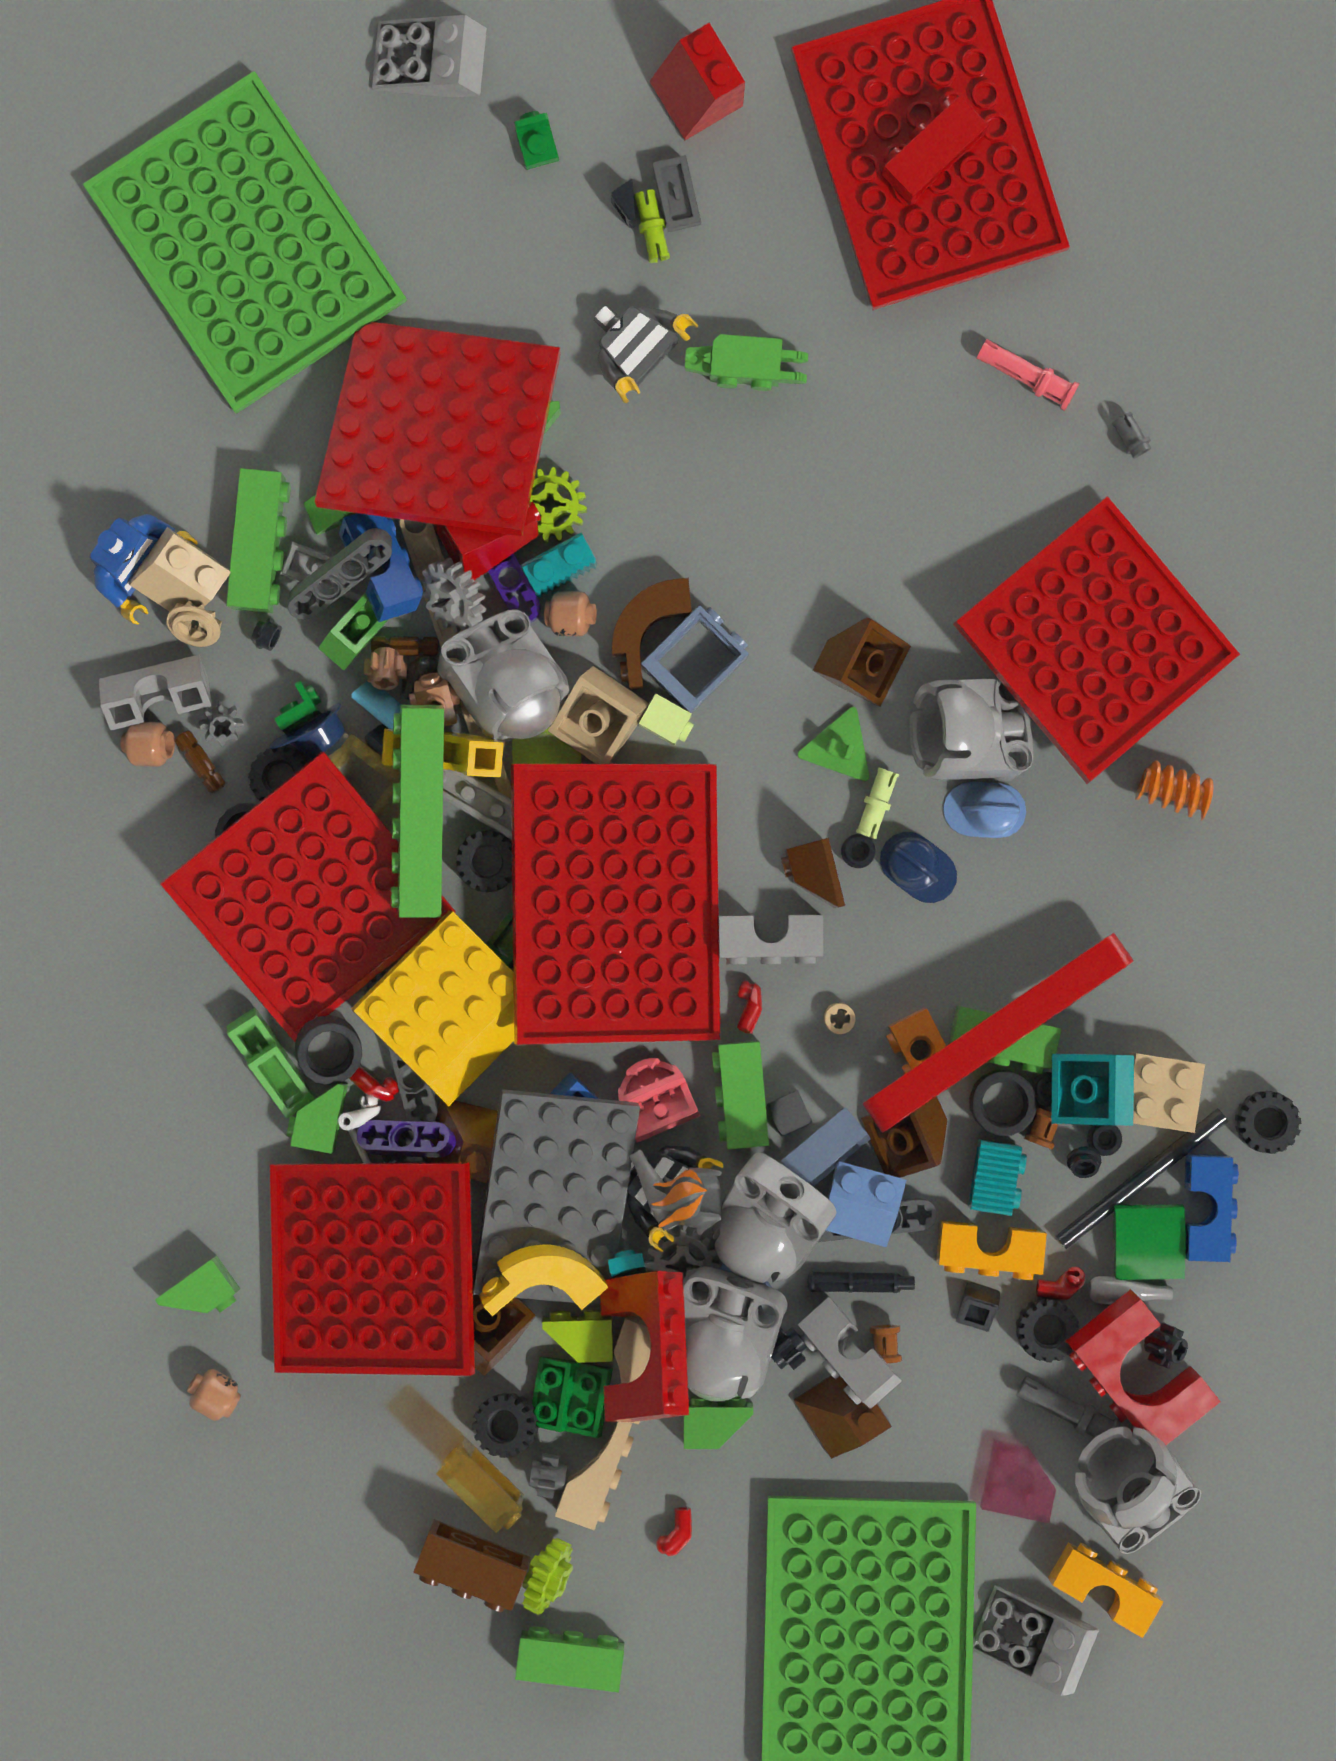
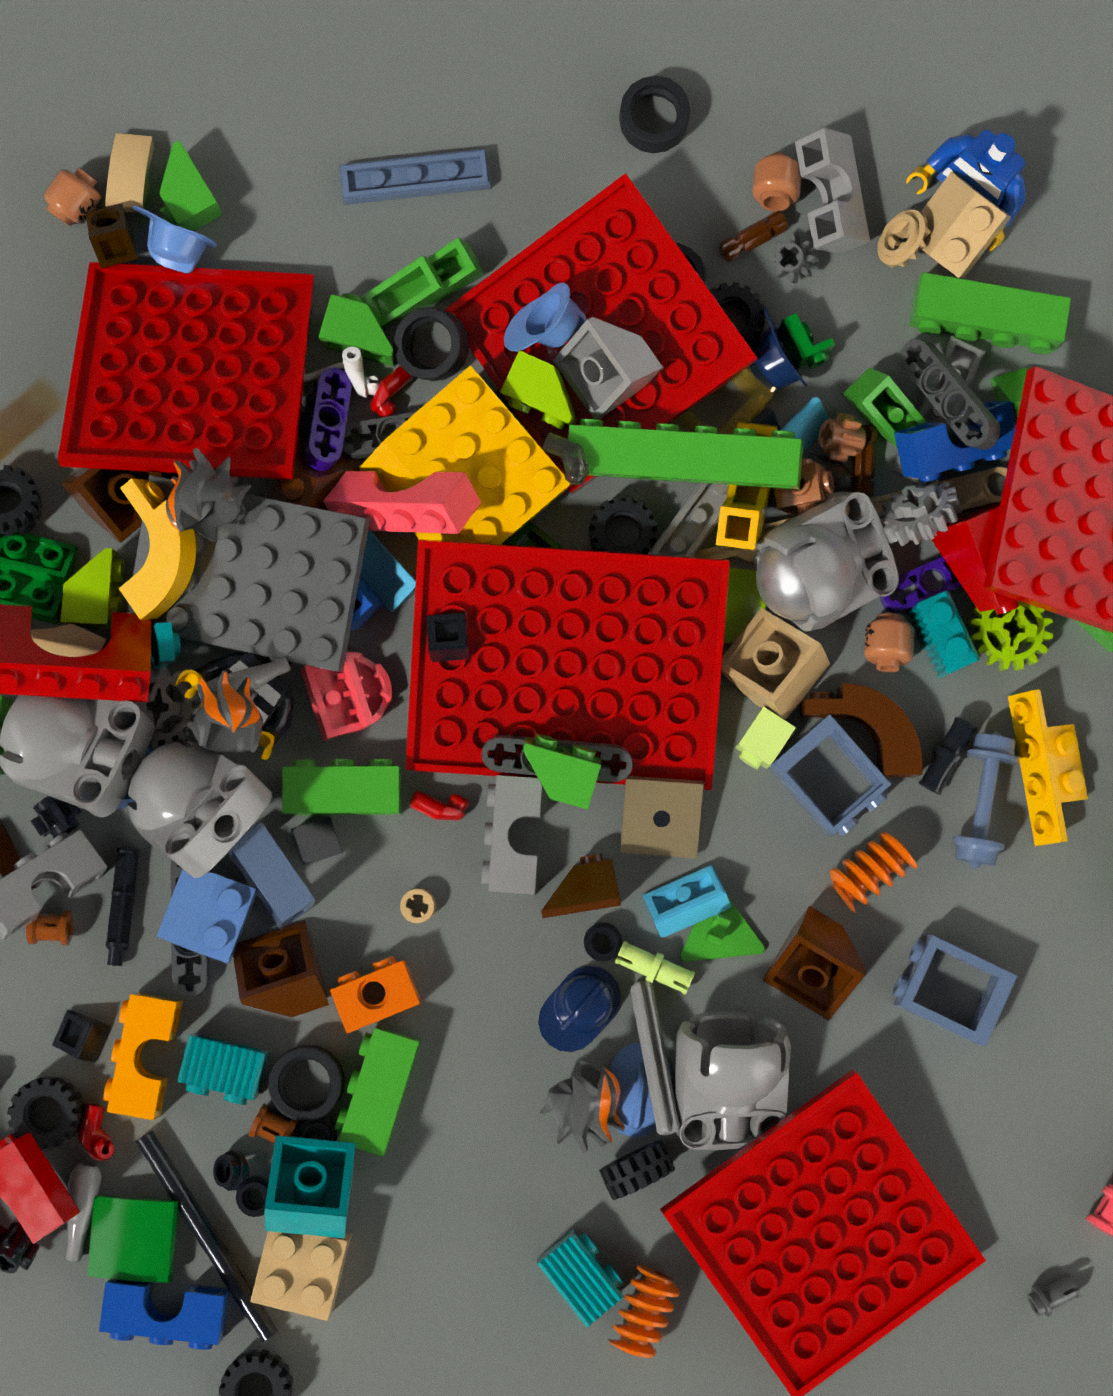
camera: 90 degrees right, 5 degrees down
(65, 856) = (658, 87): none -> black tyre
(167, 1080) = (414, 176): none -> sand blue tile
(185, 1345) = (129, 171): none -> tan slope
(249, 1353) = (111, 235): none -> dark brown brick
(256, 1295) = (173, 245): none -> medium blue piece
(266, 634) = (886, 316): black plate -> none
(302, 948) = (546, 321): none -> medium blue piece
(341, 888) = (606, 365): none -> light grey slope
(364, 946) = (539, 387): none -> lime slope
(428, 912) = (572, 455): none -> clear smoke arm
(486, 1030) = (432, 506): none -> coral arch
(495, 1238) = (204, 496): none -> dark grey hair
(545, 1071) = (386, 574): none -> medium azure slope
(600, 1010) = (447, 637): none -> black slope
(660, 515) = (993, 750): none -> sand blue piece
(667, 554) = (948, 755): none -> black pin
(670, 463) = (1048, 766): none -> yellow bracket
(694, 904) = (510, 742): none -> dark grey beam
(714, 896) = (563, 772): none -> bright green slope
(743, 807) = (661, 816): none -> dark tan tile
(776, 617) = (871, 869): none -> orange piece
(816, 779) = (687, 901): none -> medium azure slope
(890, 506) = (989, 1006): none -> sand blue window
(956, 797) = (655, 1058): none -> light grey axle
(997, 1032) = (384, 1082): red beam -> none
(1003, 855) = (585, 1105): none -> dark grey hair
(1054, 806) = (637, 1169): none -> black tyre
(1150, 847) = (581, 1276): none -> teal brick

